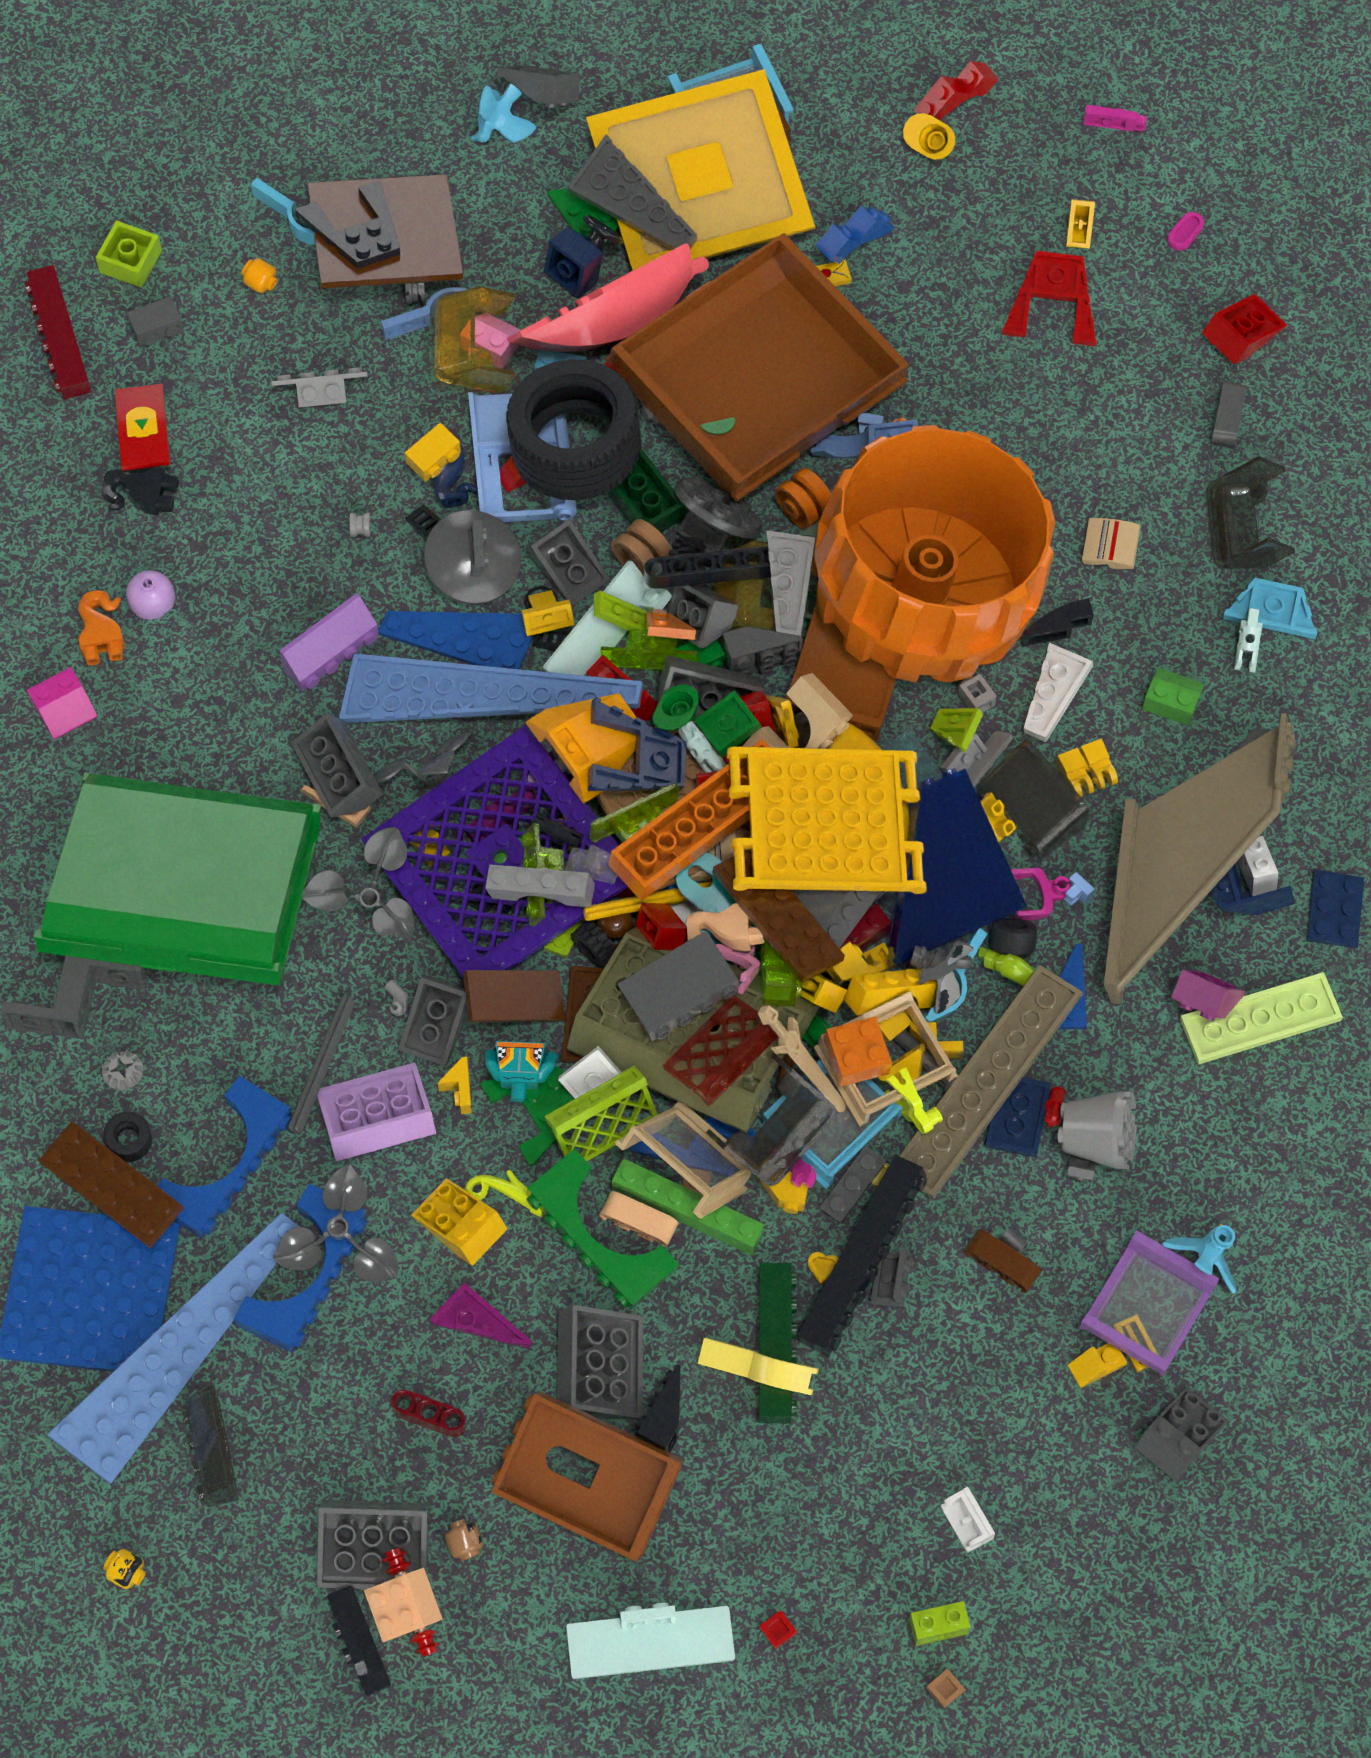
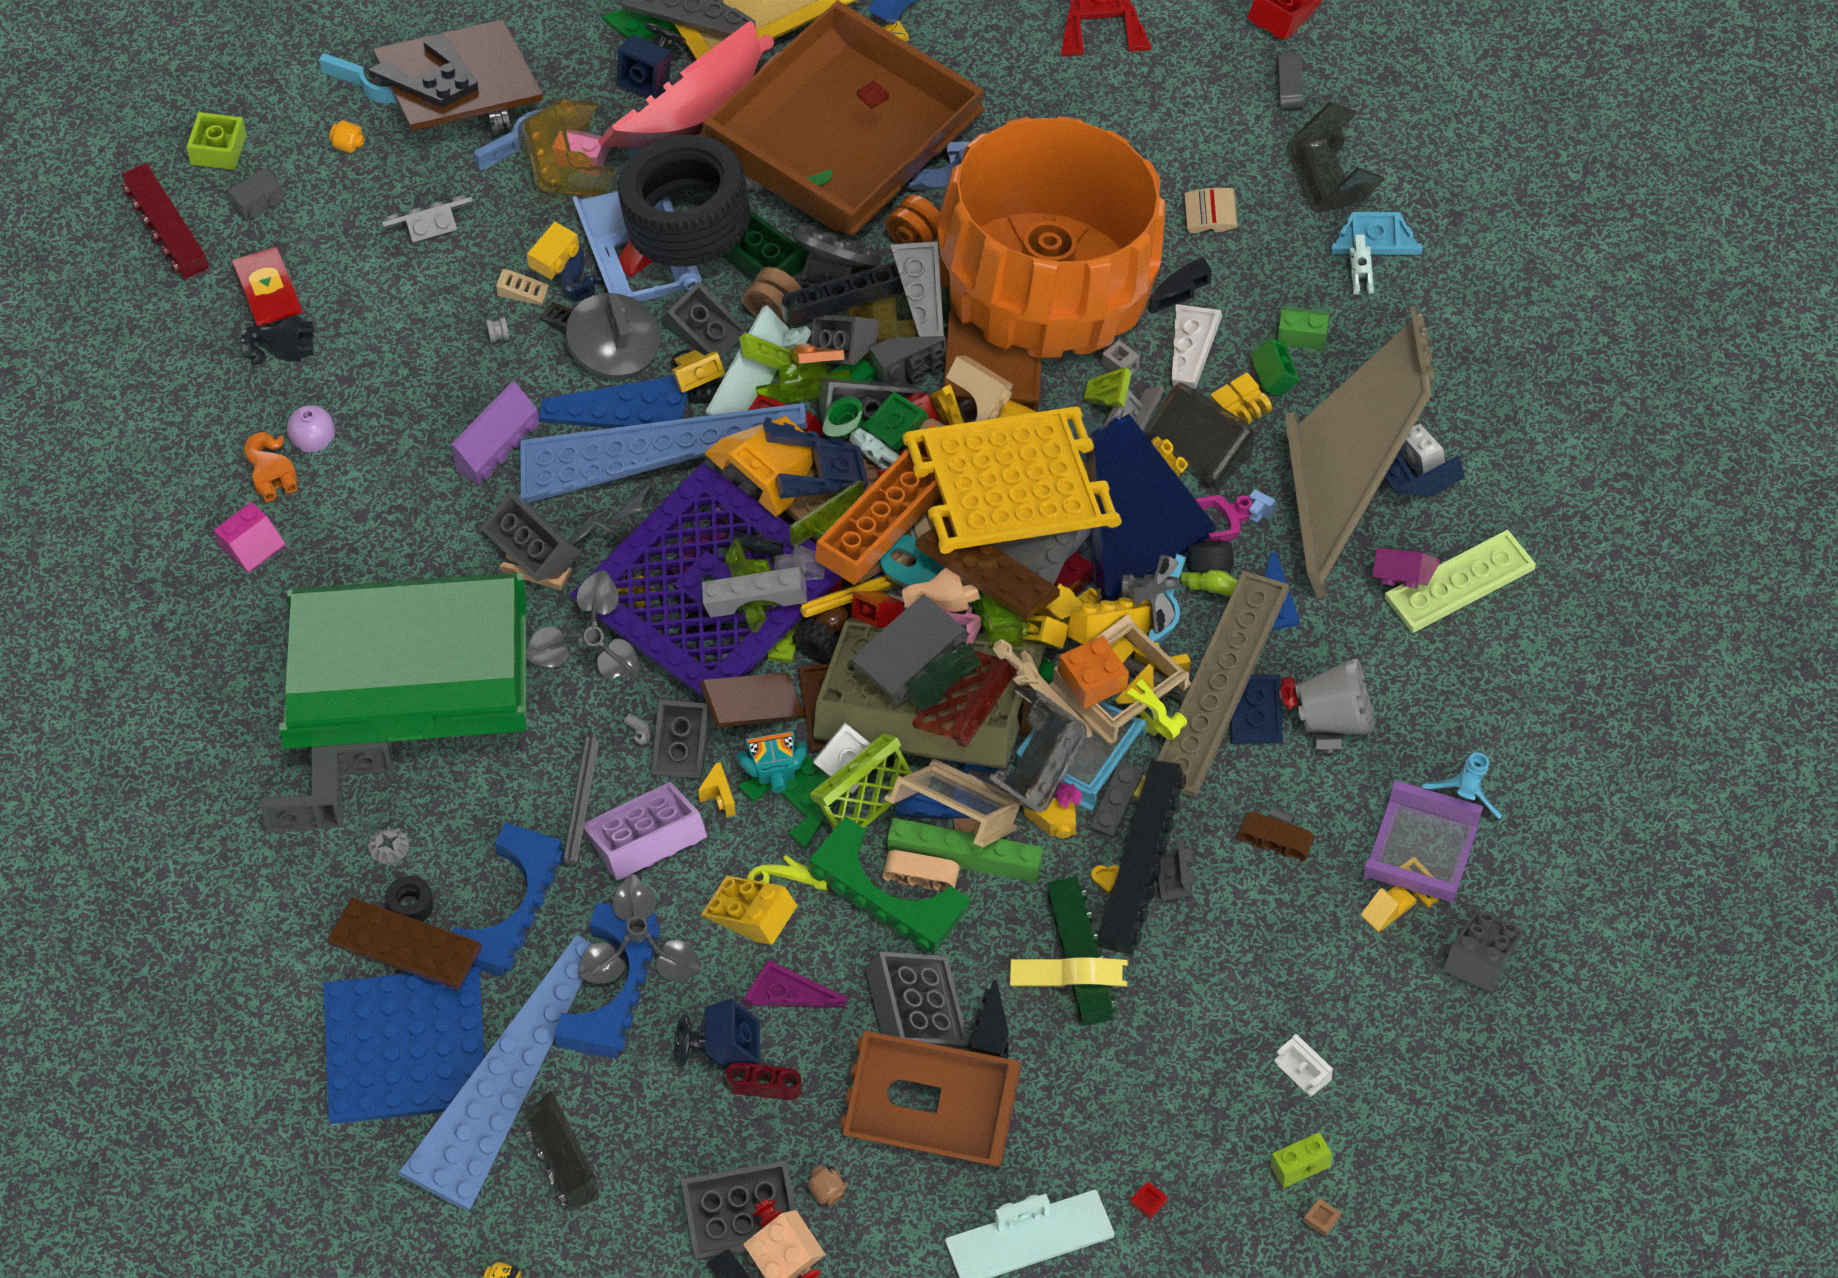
camera: 10 degrees left, 10 degrees down
(390, 470) = (515, 279): none -> tan slope
(401, 1360) = (726, 1035): none -> dark blue piece
(703, 1022) = (941, 674): none -> clear green slope
(792, 349) = (872, 94): none -> clear red tile
(1131, 738) = (1274, 367): none -> green brick
(1335, 909) = (1503, 476): dark blue plate -> none

